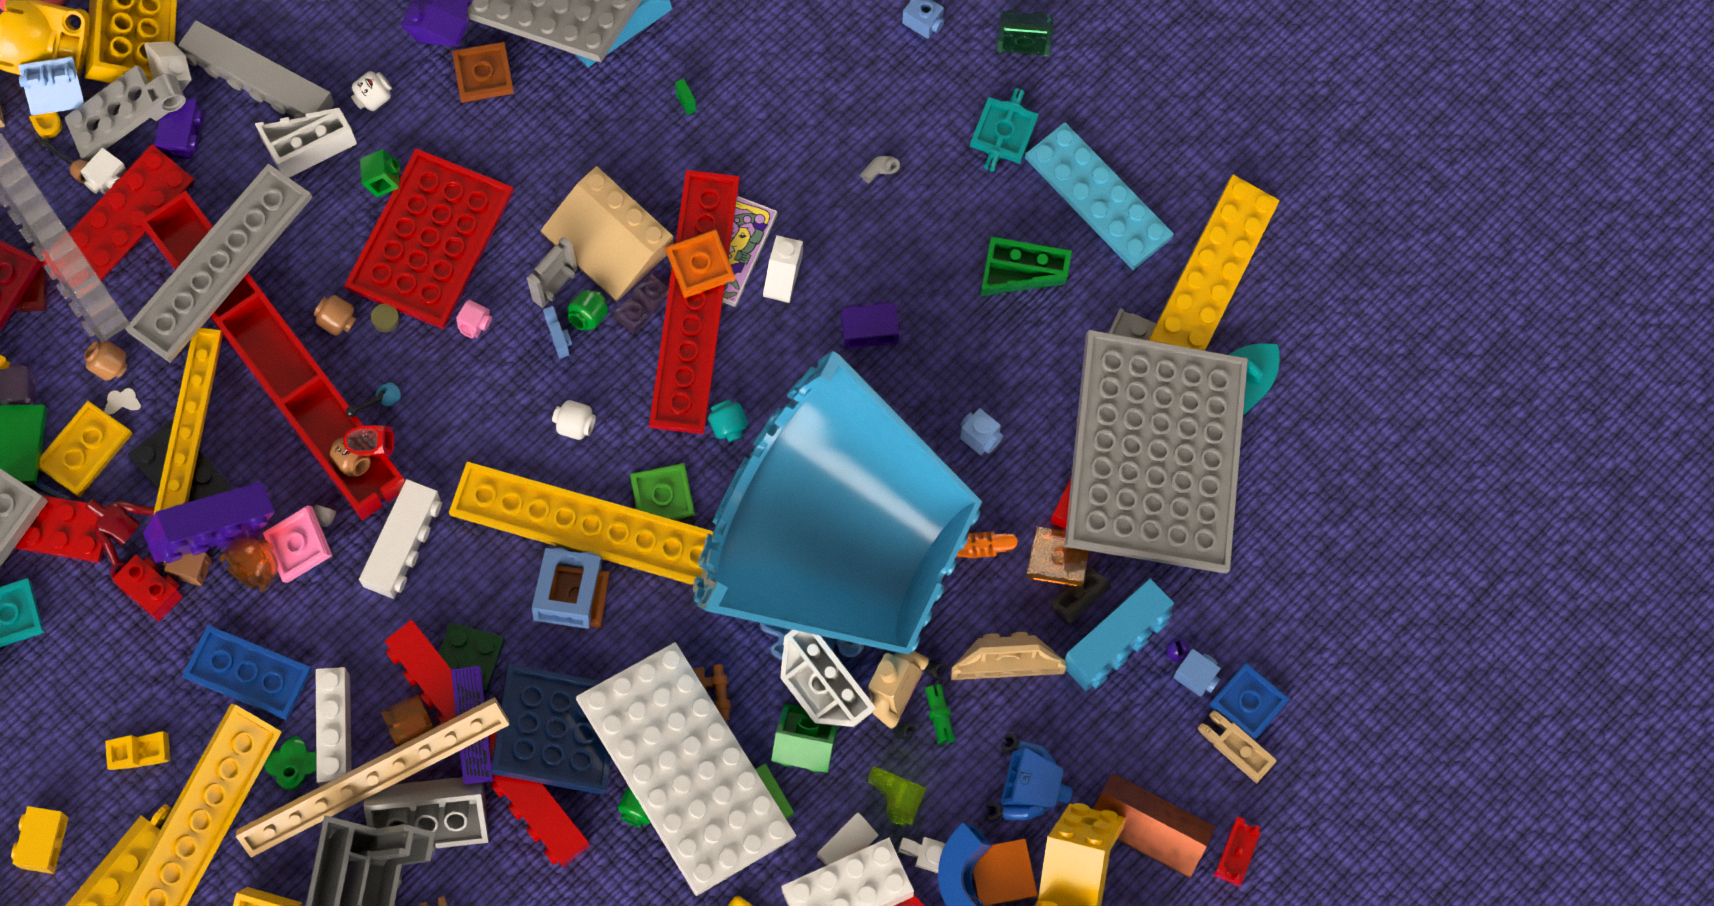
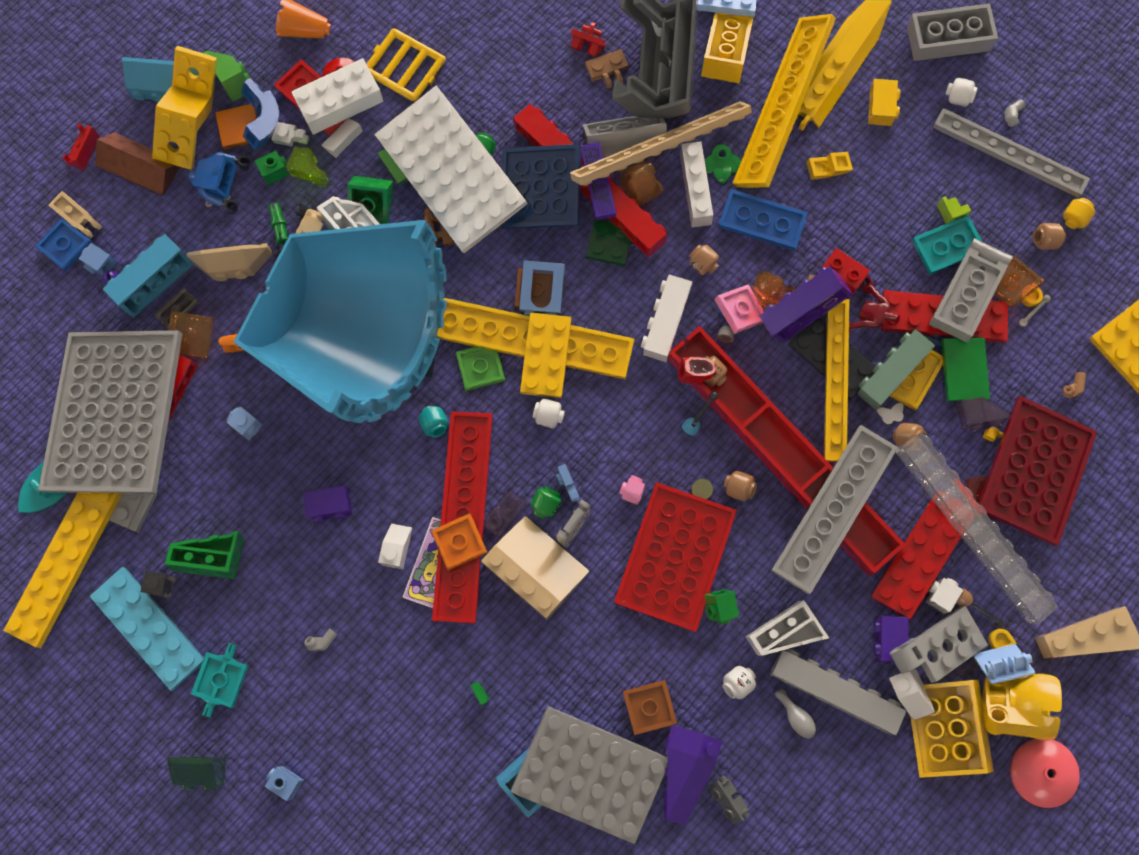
camera: 175 degrees left, 5 degrees up
(106, 444) = (895, 369): none -> sand green brick
(307, 50) = (797, 717): none -> light grey piece
(338, 616) = (704, 259): none -> medium nougat head
(570, 494) = (546, 355): none -> yellow plate
(948, 798) = (272, 167): none -> green brick
(1086, 239) = (157, 584): none -> clear smoke brick

